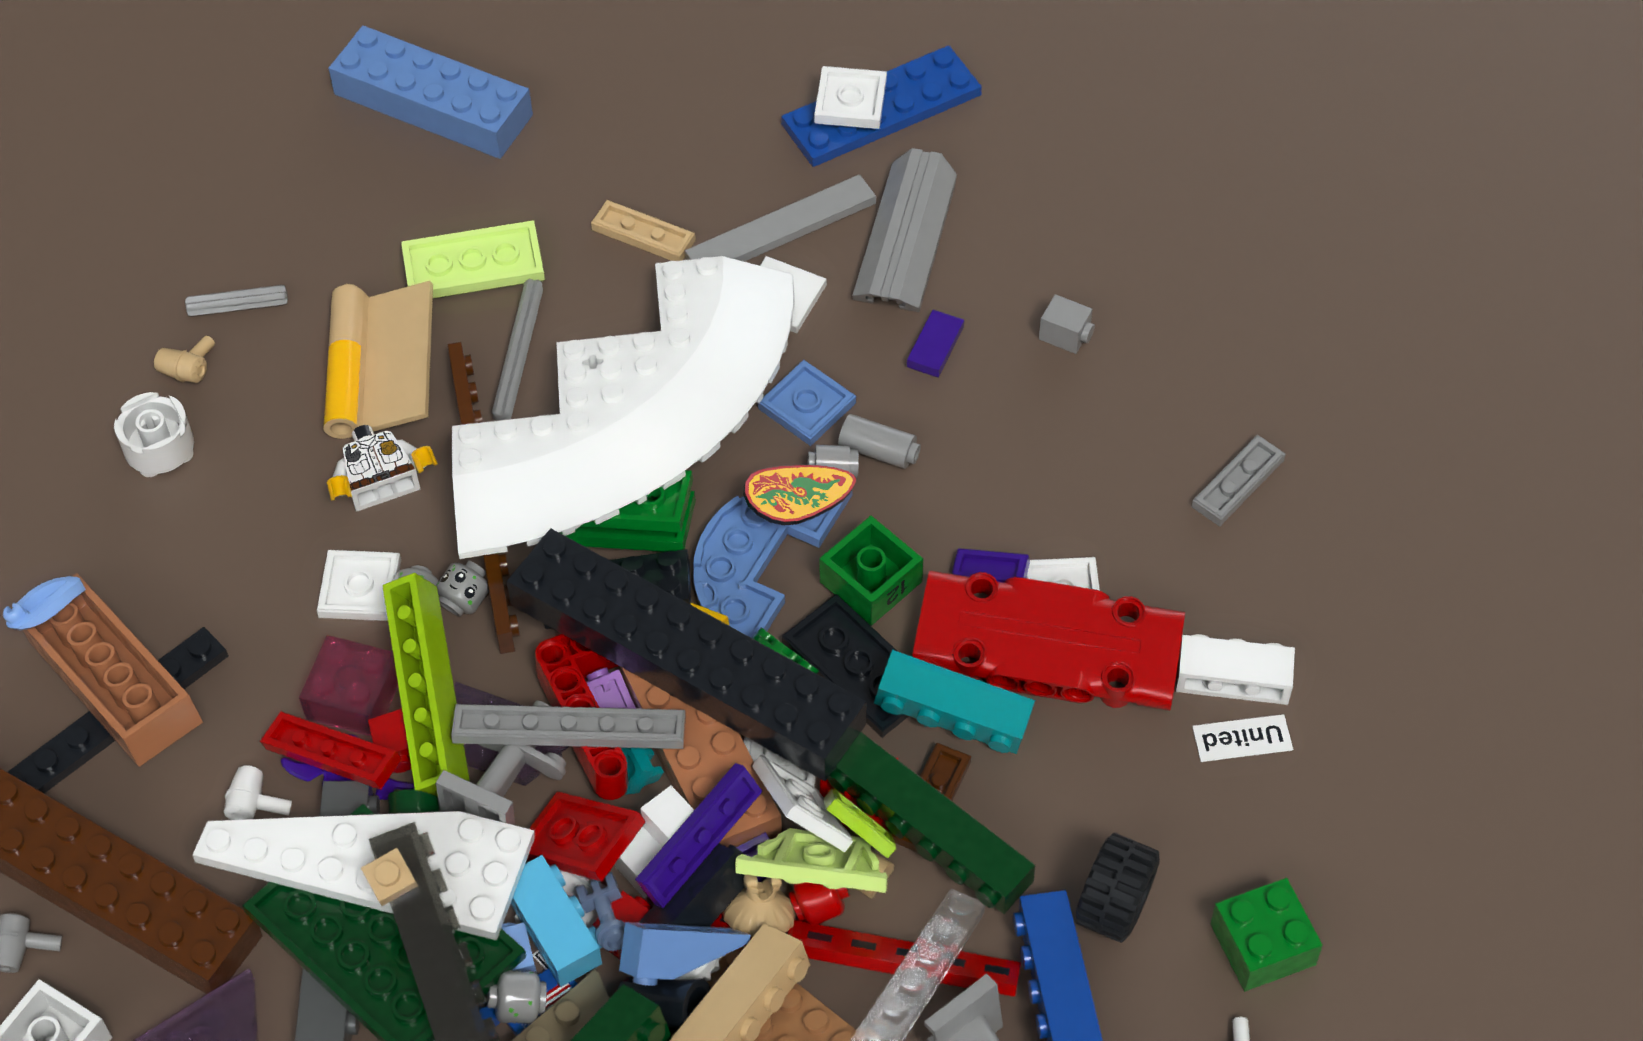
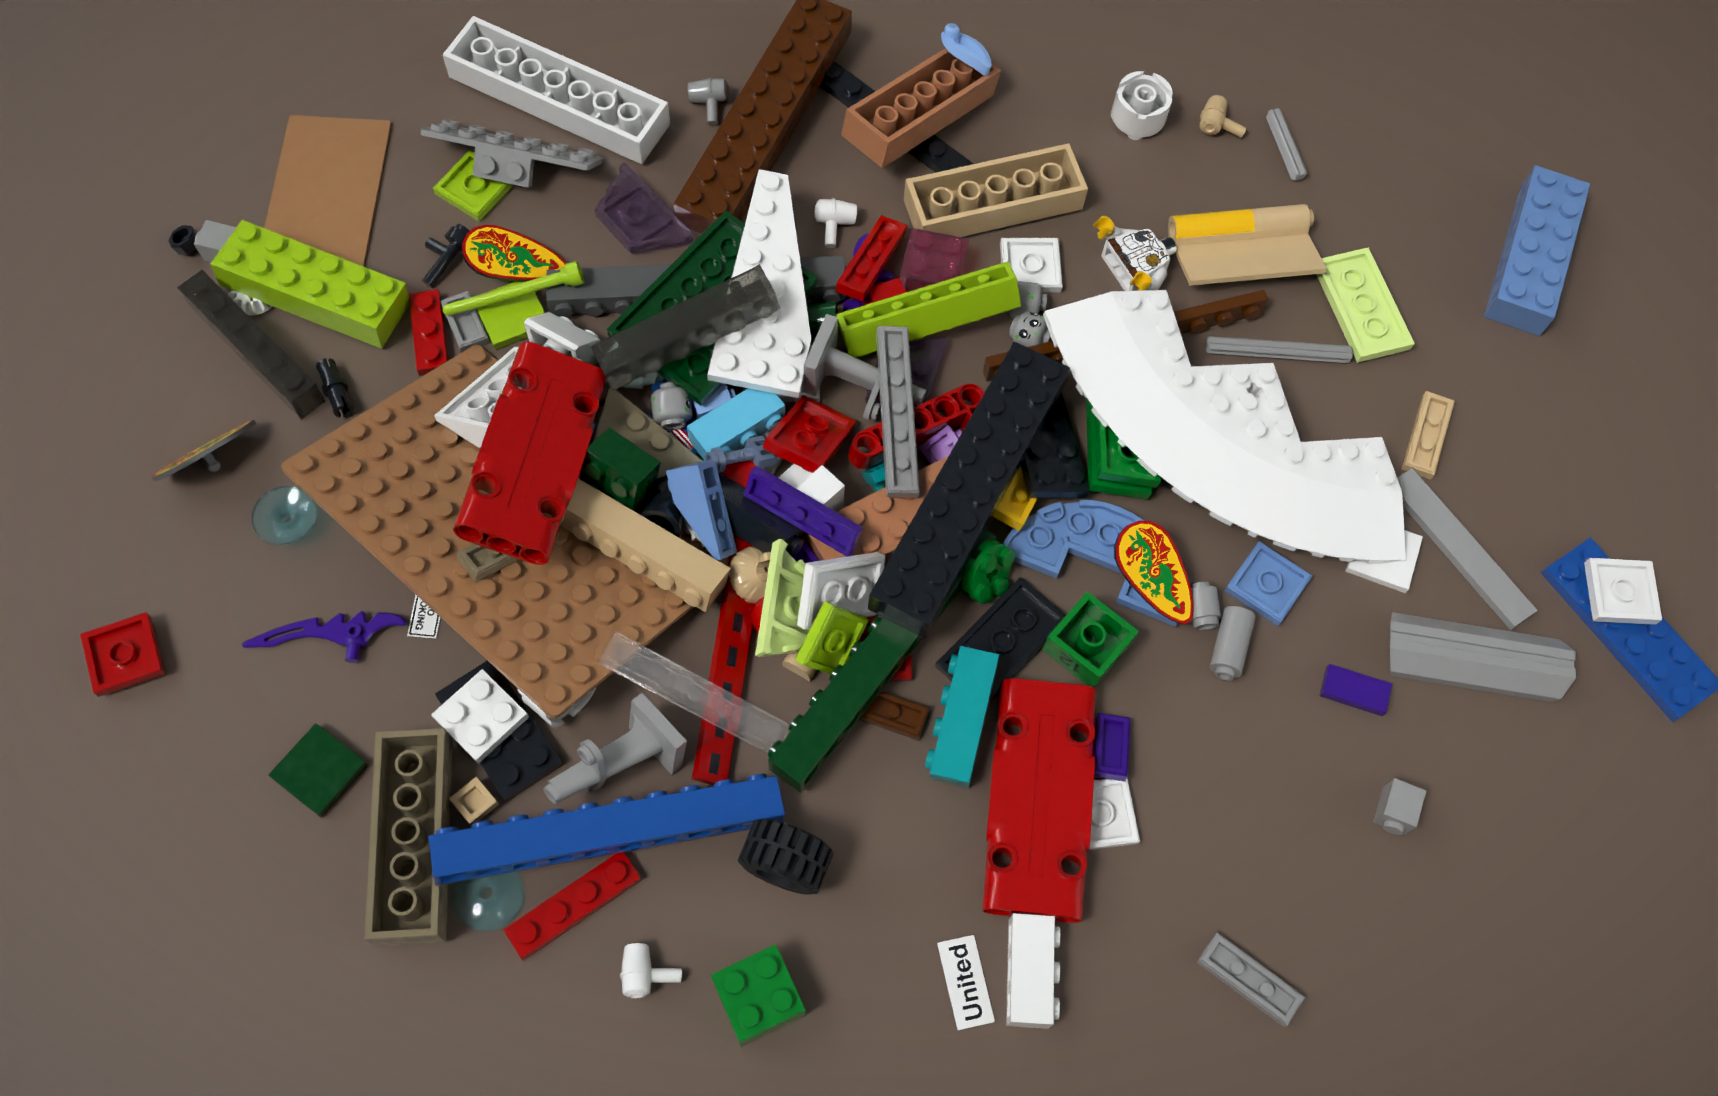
camera: 80 degrees right, 10 degrees up
(257, 607) = (997, 192): none -> tan brick
(389, 877) = (727, 281): tan plate -> none

